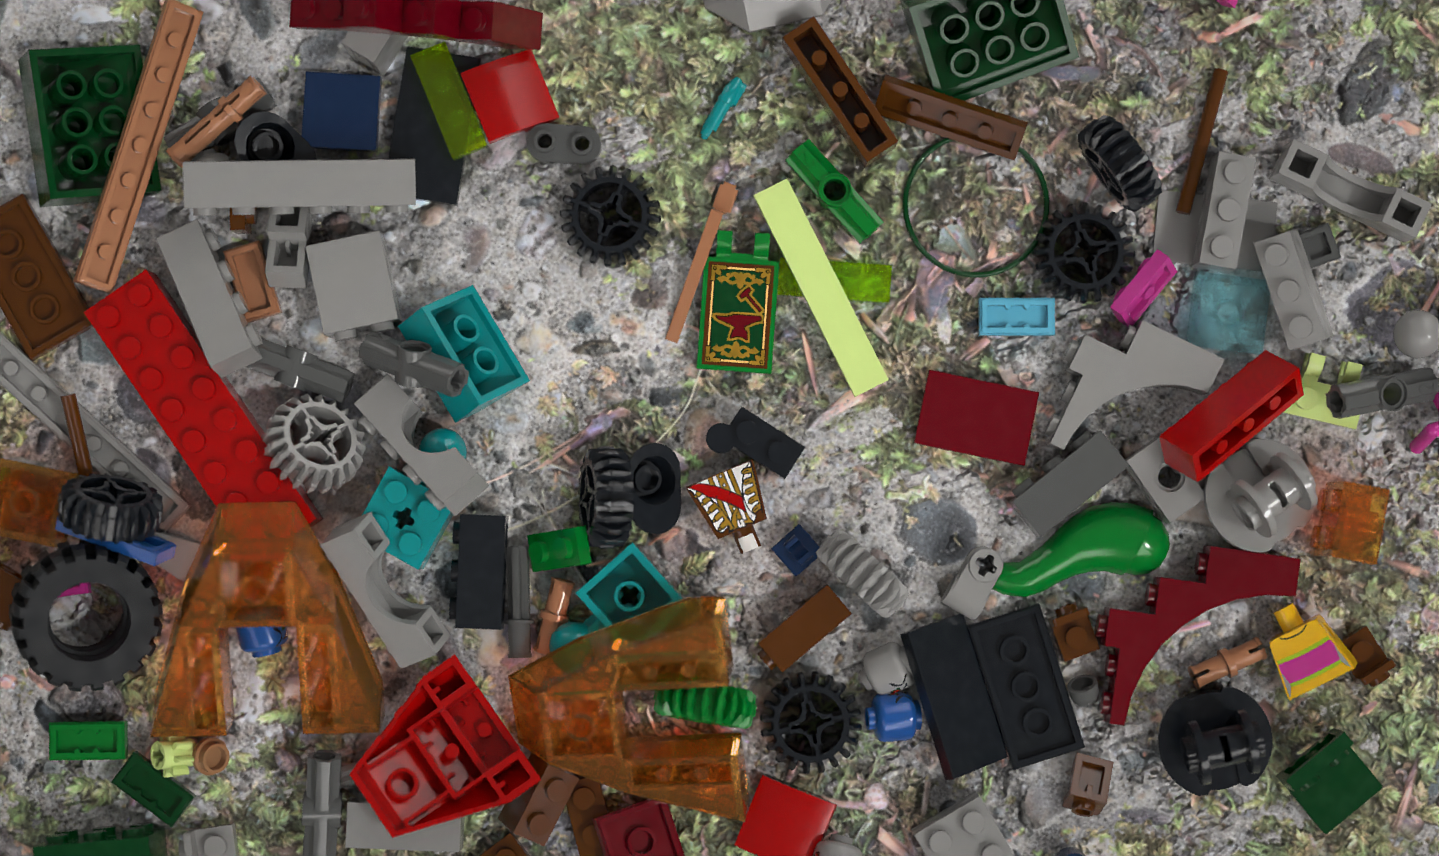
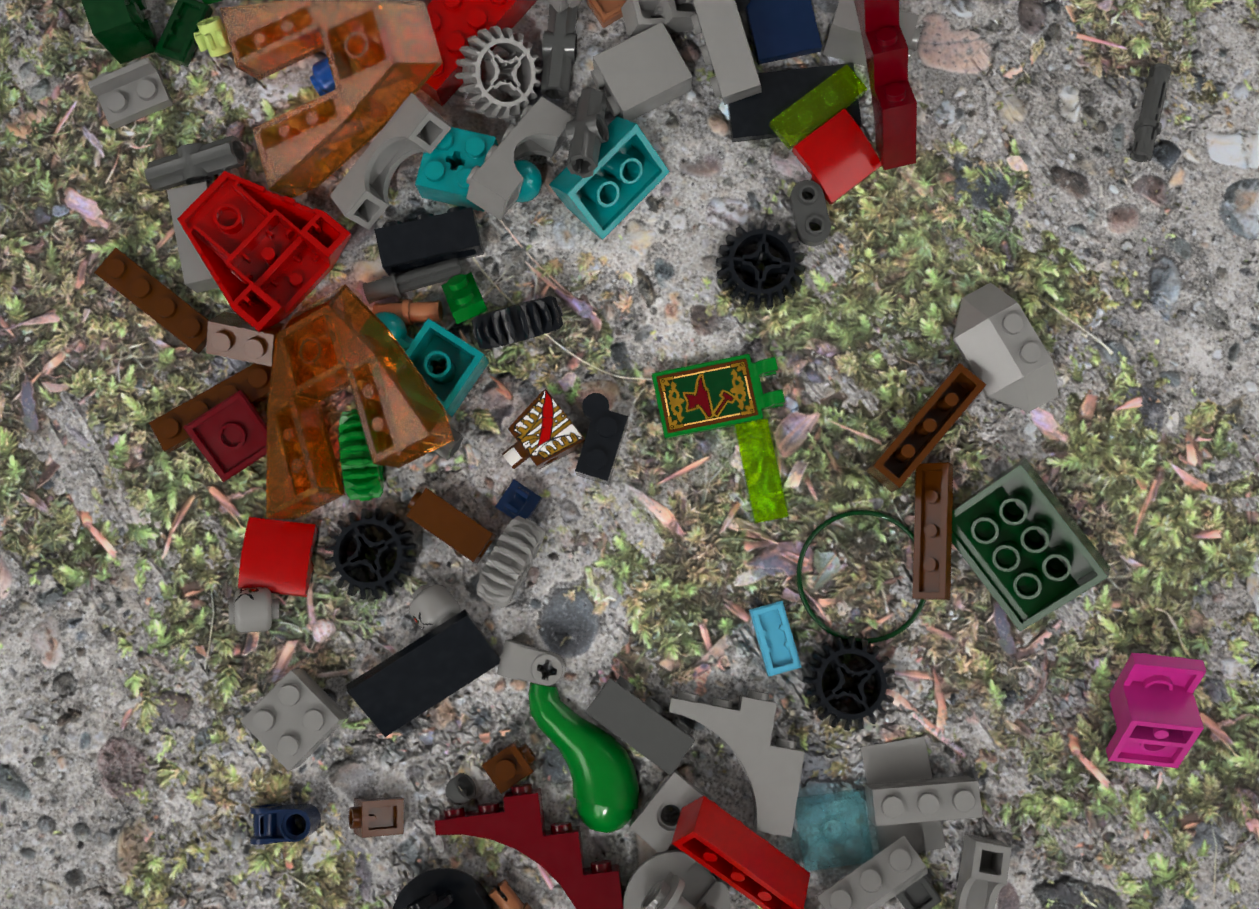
camera: 75 degrees right, 5 degrees down
(210, 756) = (220, 66): medium nougat plate -> none
(656, 488) = (537, 363): black piece -> none
(723, 203) = (799, 358): nougat piece -> none
(728, 98) = (889, 337): teal piece -> none
(818, 172) = (849, 431): green piece -> none
(820, 287) = (750, 459): yellowish green tile -> none
(893, 716) = (393, 625): blue head -> none
(976, 417) = (676, 627): dark red tile -> none
(1026, 686) = (451, 736): black tile -> none
(1119, 163) = (939, 692): black gear -> none
(1137, 296) = (841, 749): dark pink plate -> none
(1202, 141) = (980, 763): reddish brown bar -> none

